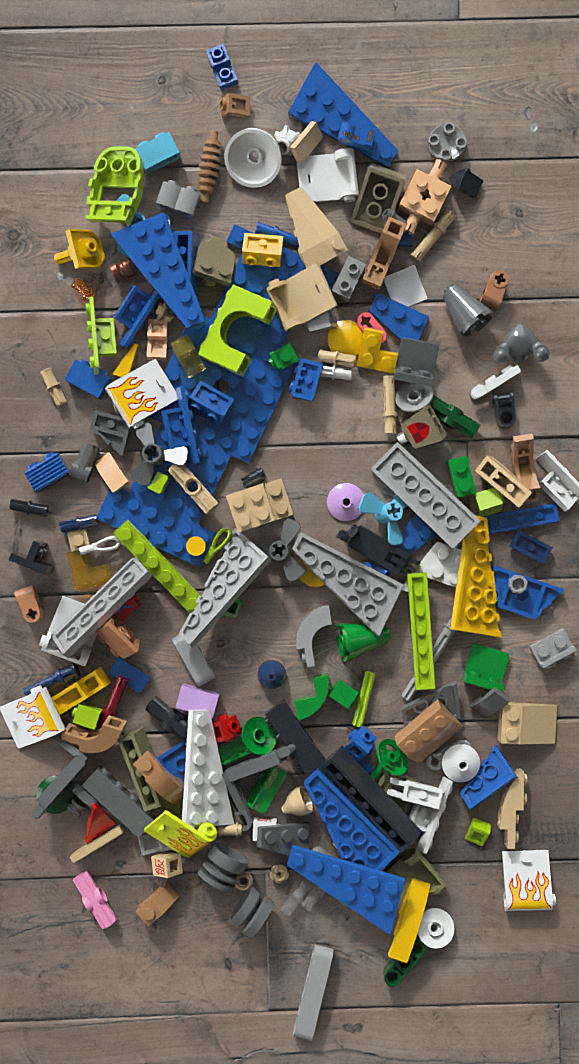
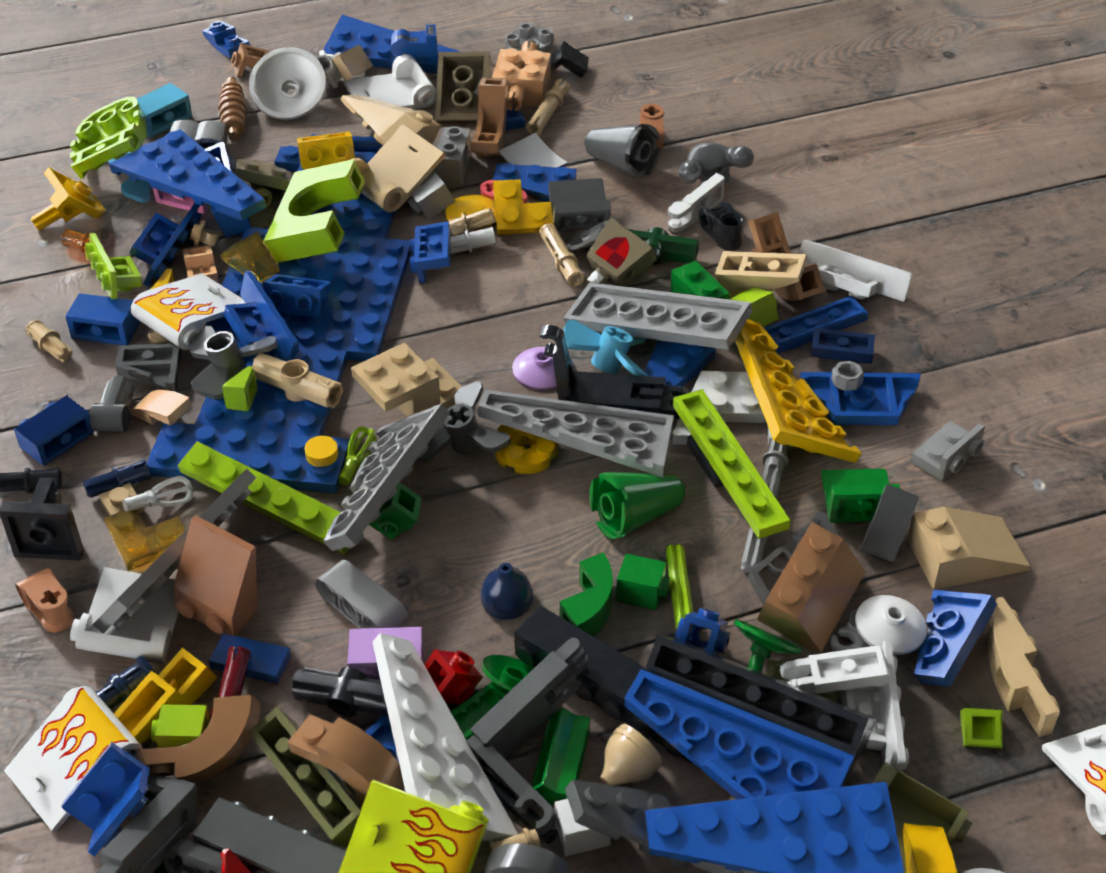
camera: 20 degrees left, 45 degrees down
(50, 758) = (108, 795): none -> blue bracket
(125, 267) = (133, 210): copper wheel -> none
(283, 358) = (389, 234): green bracket -> none
(311, 623) = (550, 503): light grey arch -> none

